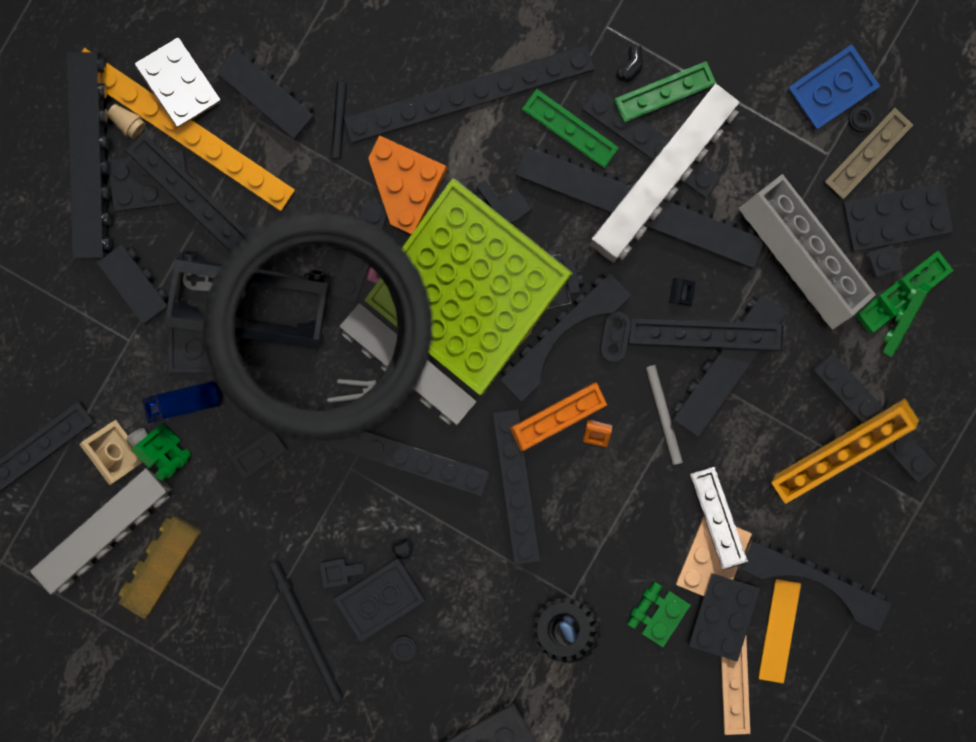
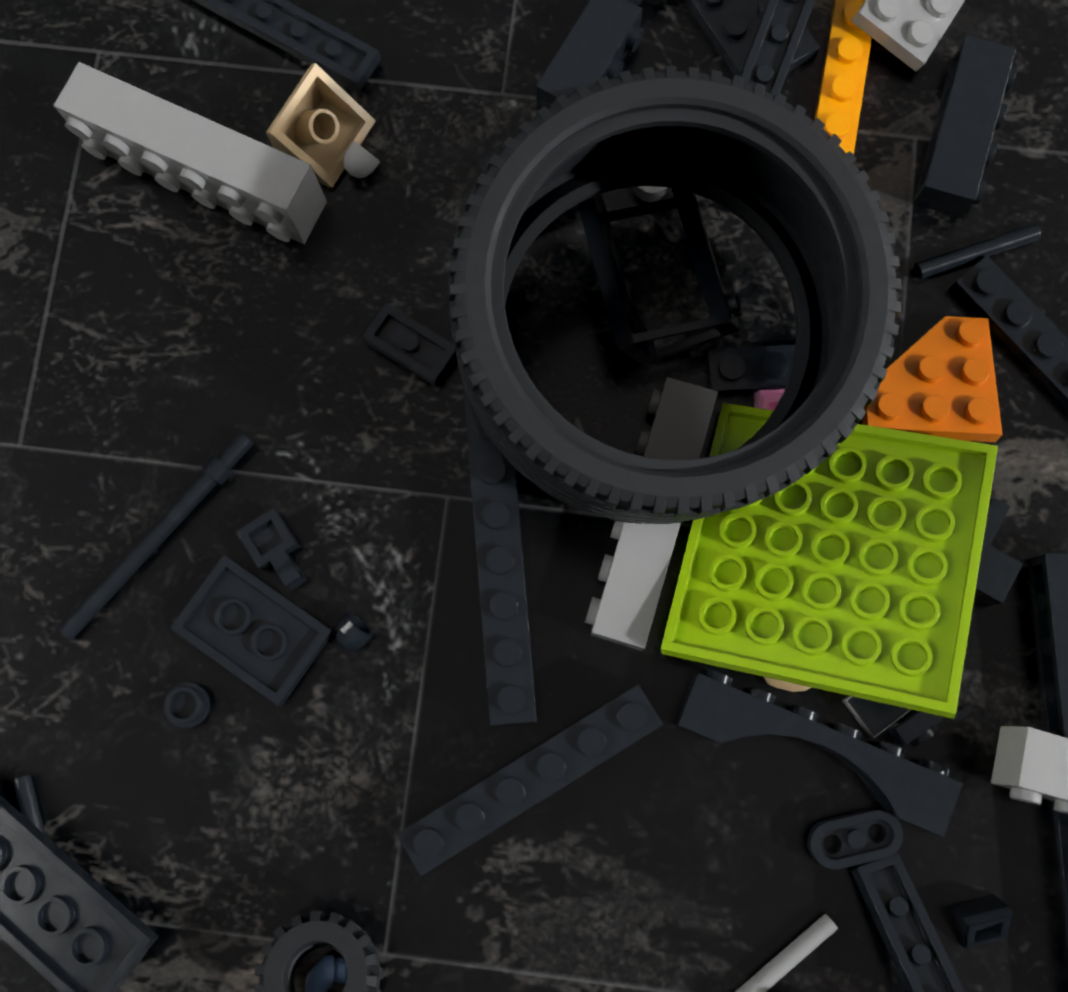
camera: 75 degrees right, 10 degrees down
(155, 446) = (358, 182): green plate -> none
(159, 567) = (173, 267): clear yellow brick -> none
(181, 402) = (435, 186): clear blue slope -> none
(558, 416) = (679, 799): orange tile -> none
(597, 433) = (678, 878): orange slope -> none

